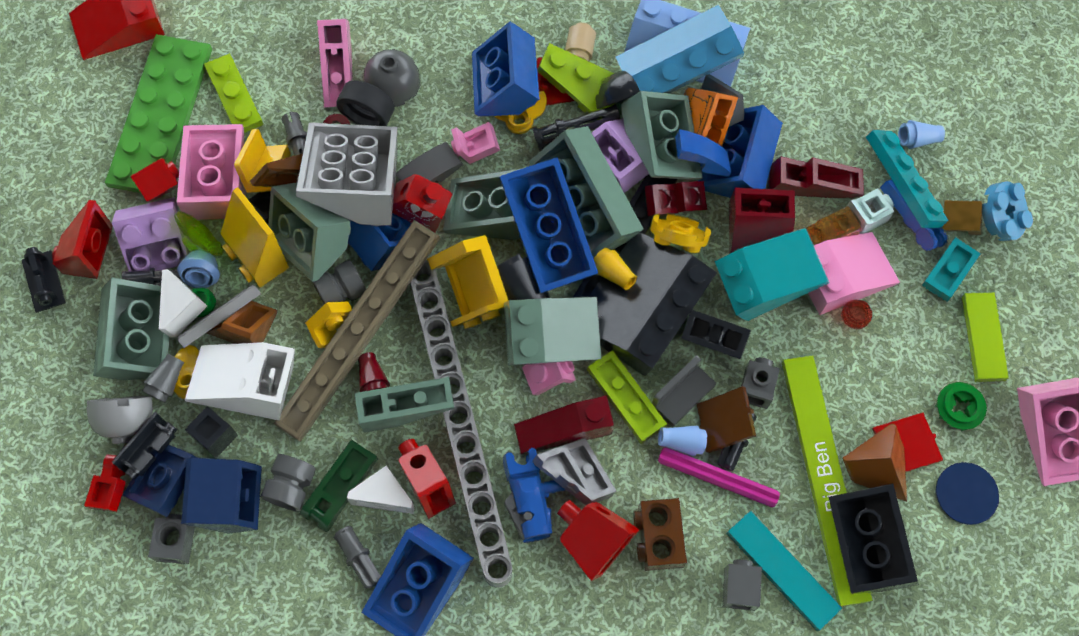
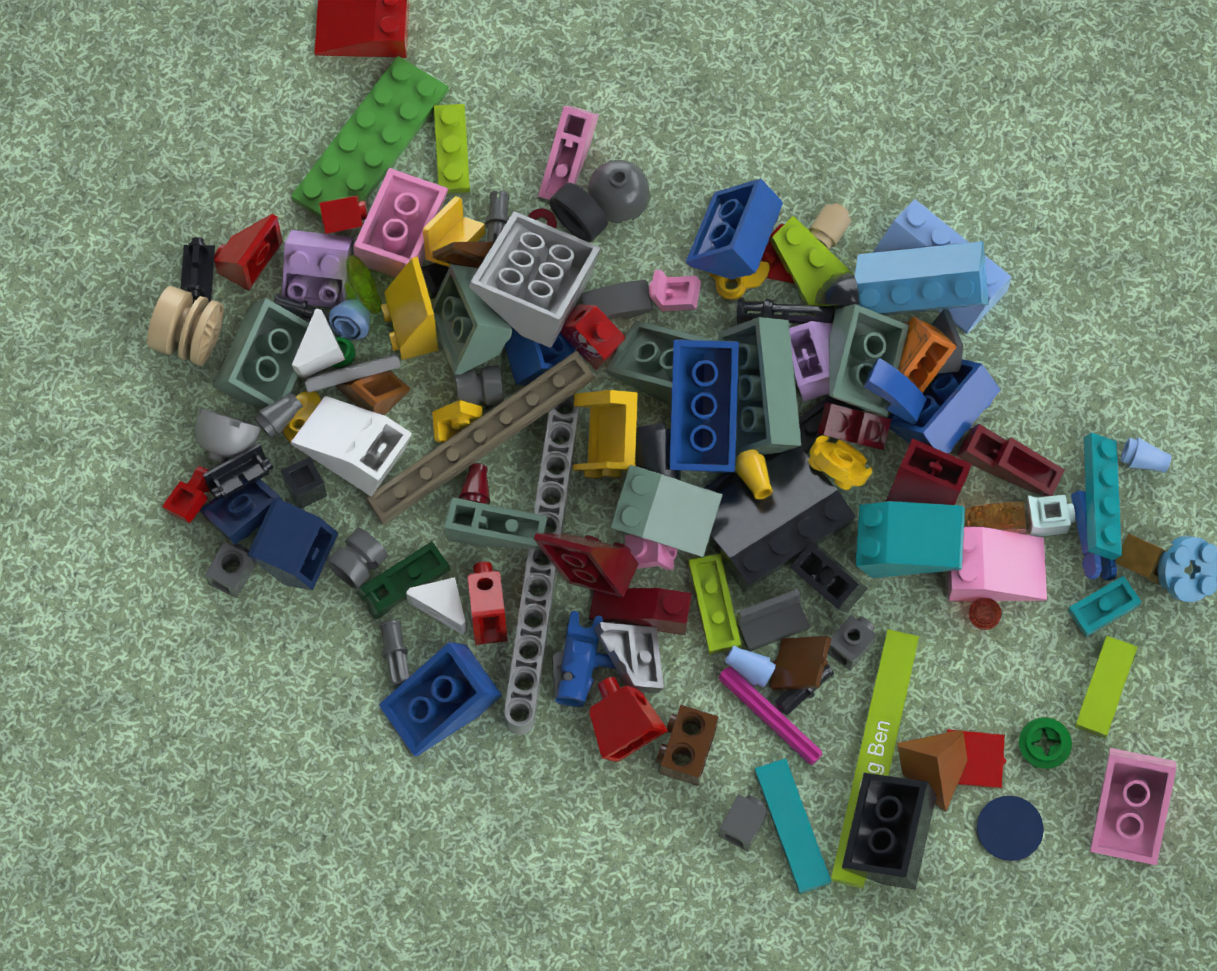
camera: 25 degrees right, 0 degrees up
(45, 330) = (185, 325): none -> tan wheel
(504, 402) = (590, 562): none -> dark red slope

